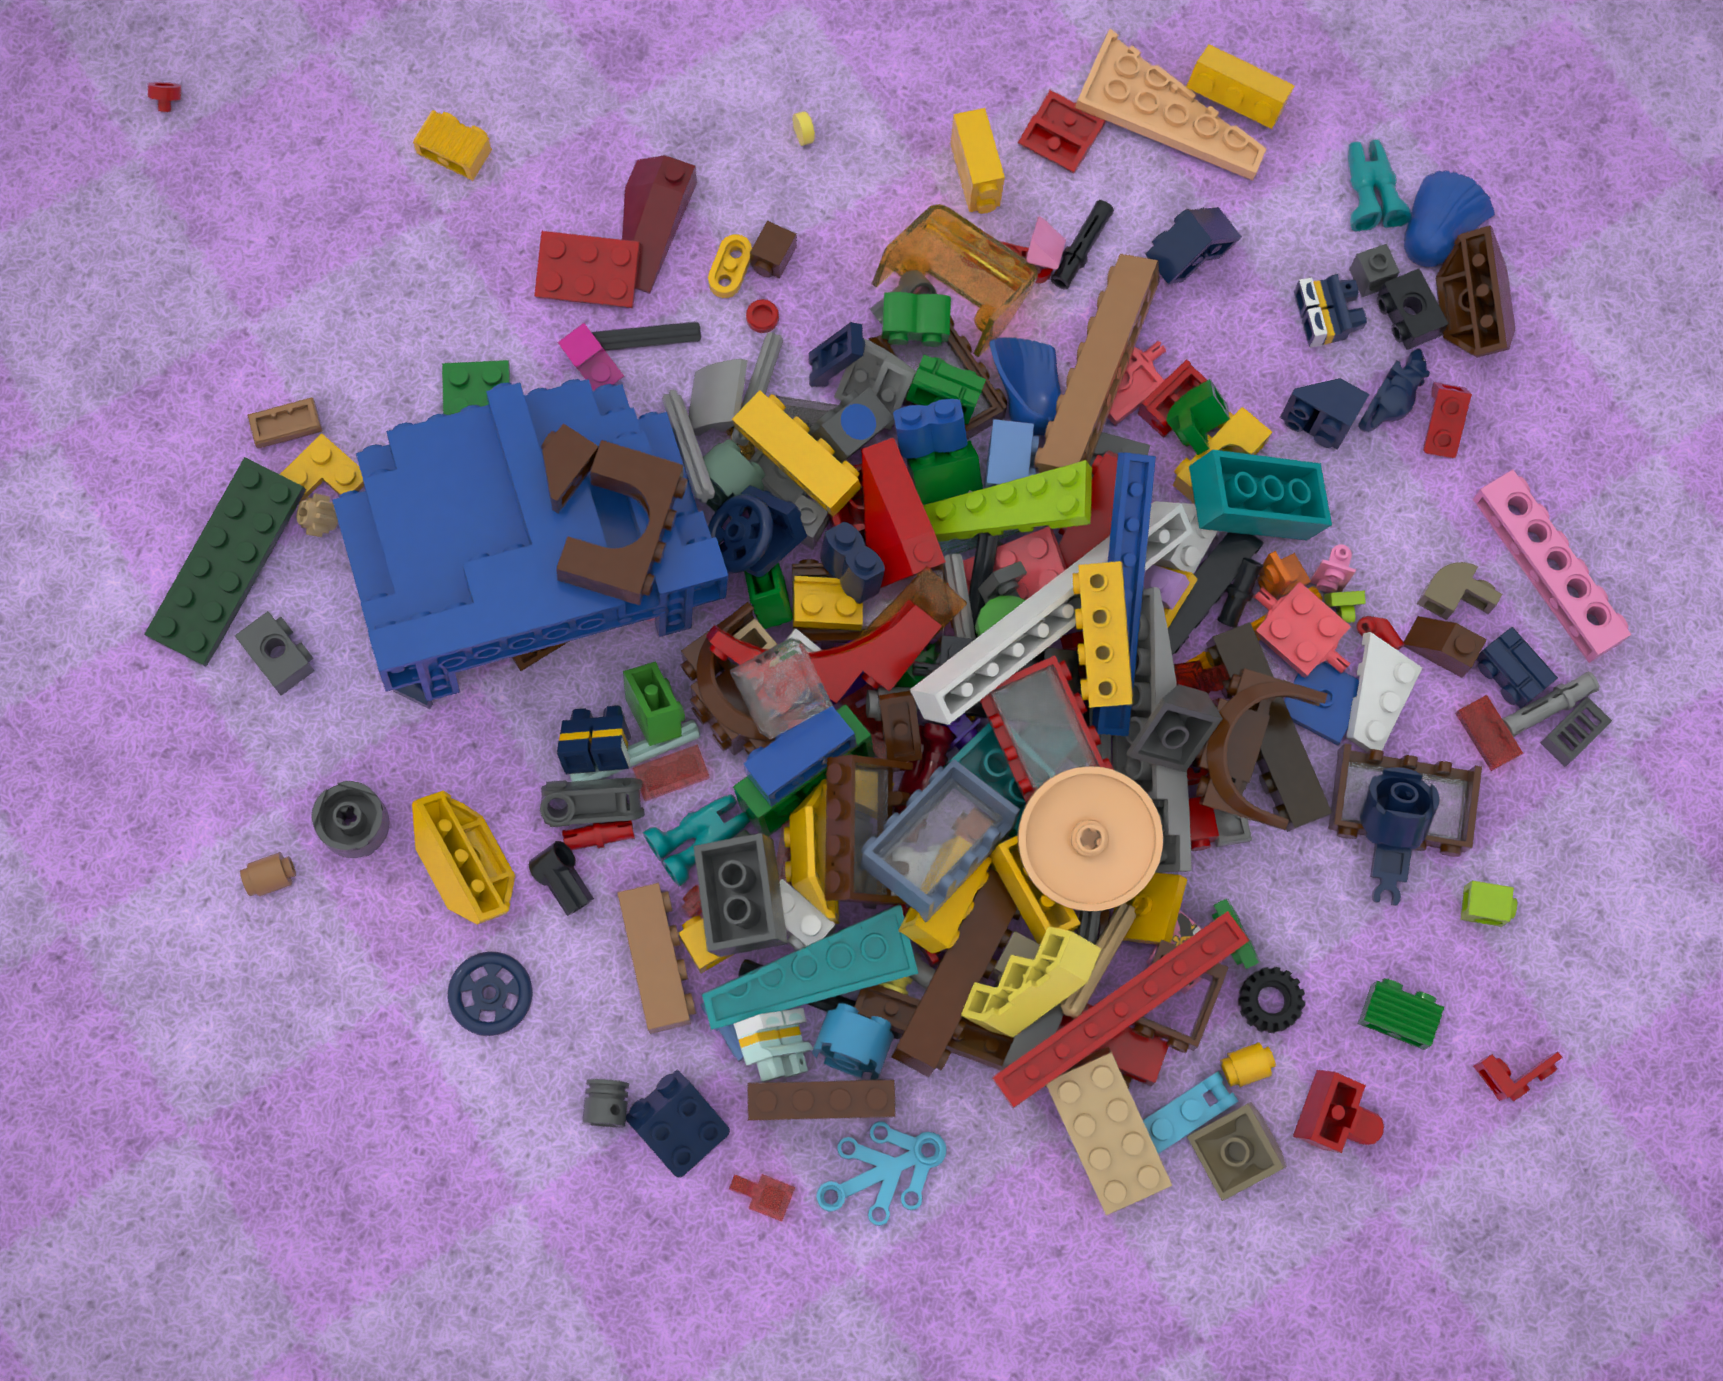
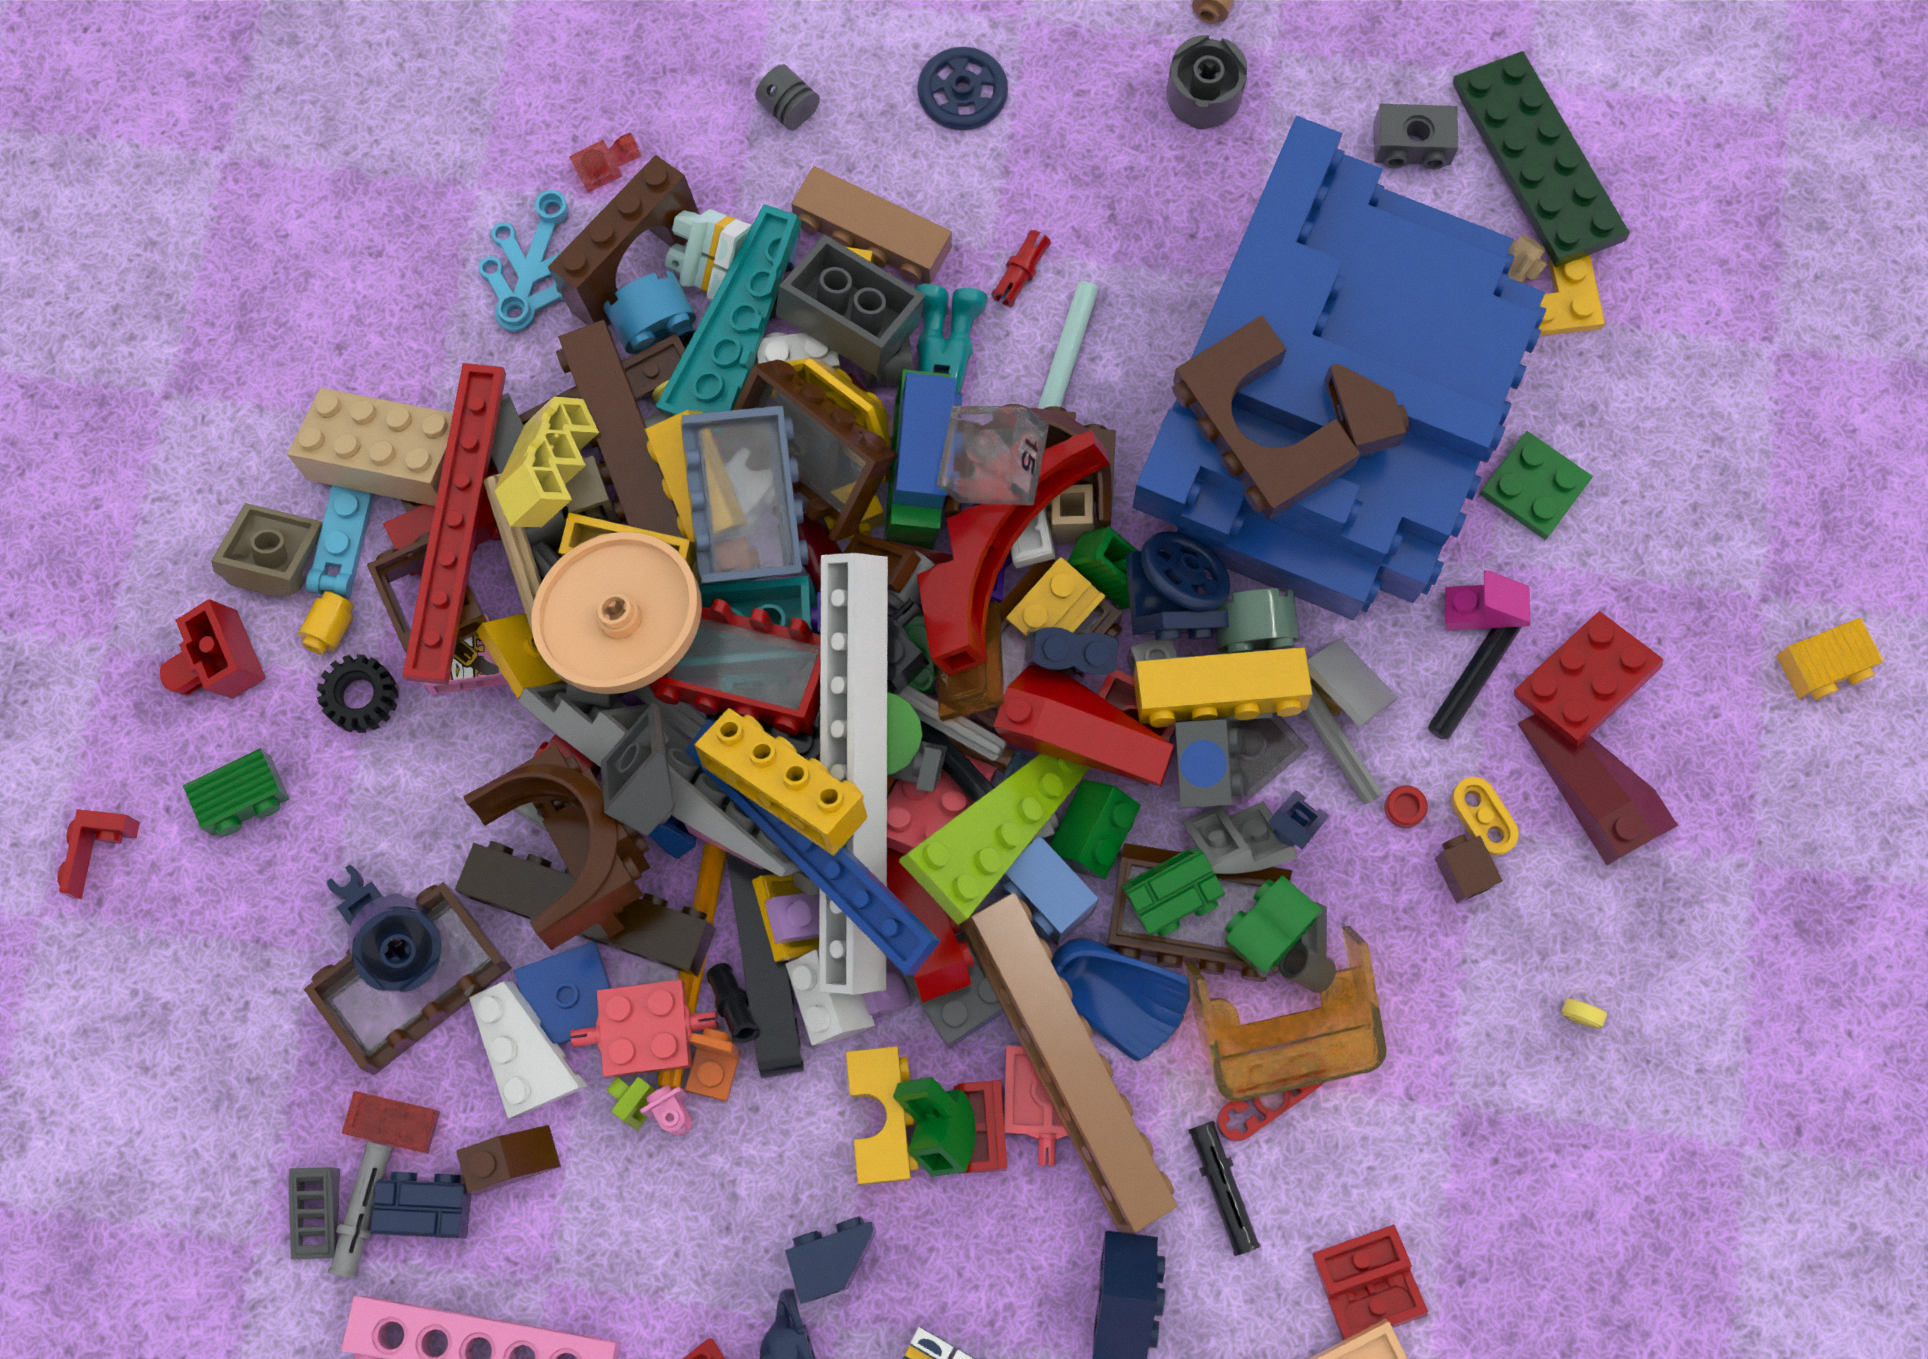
camera: 135 degrees right, 0 degrees up
(284, 423) = (1641, 301): medium nougat plate -> none
(462, 858) = (1091, 144): yellow wedge -> none
(556, 870) = (1005, 204): black piece -> none
(592, 801) = (1053, 277): dark grey piece -> none
(594, 741) = (1103, 315): dark blue hips -> none
(653, 703) = (1094, 387): bright green brick -> none
(671, 772) = (1023, 368): clear red plate -> none
(677, 1123) = (721, 136): dark blue bracket -> none
(688, 446) = (1316, 604): light grey axle -> none
(930, 428) = (1143, 828): blue brick -> none
(977, 160) = (1401, 1148): yellow brick -> none
(1045, 246) = (1249, 1139): bright pink slope -> none
(1194, 676) = (688, 872): clear red plate -> none
(1246, 953) = (435, 705): green plate -> none
(1260, 495) = (800, 1098): teal brick -> none
(1381, 628) = (581, 1115): red arm -> none
(1454, 584) = (556, 1222): dark tan brick -> none
(1488, 903) = (247, 963): lime brick -> none

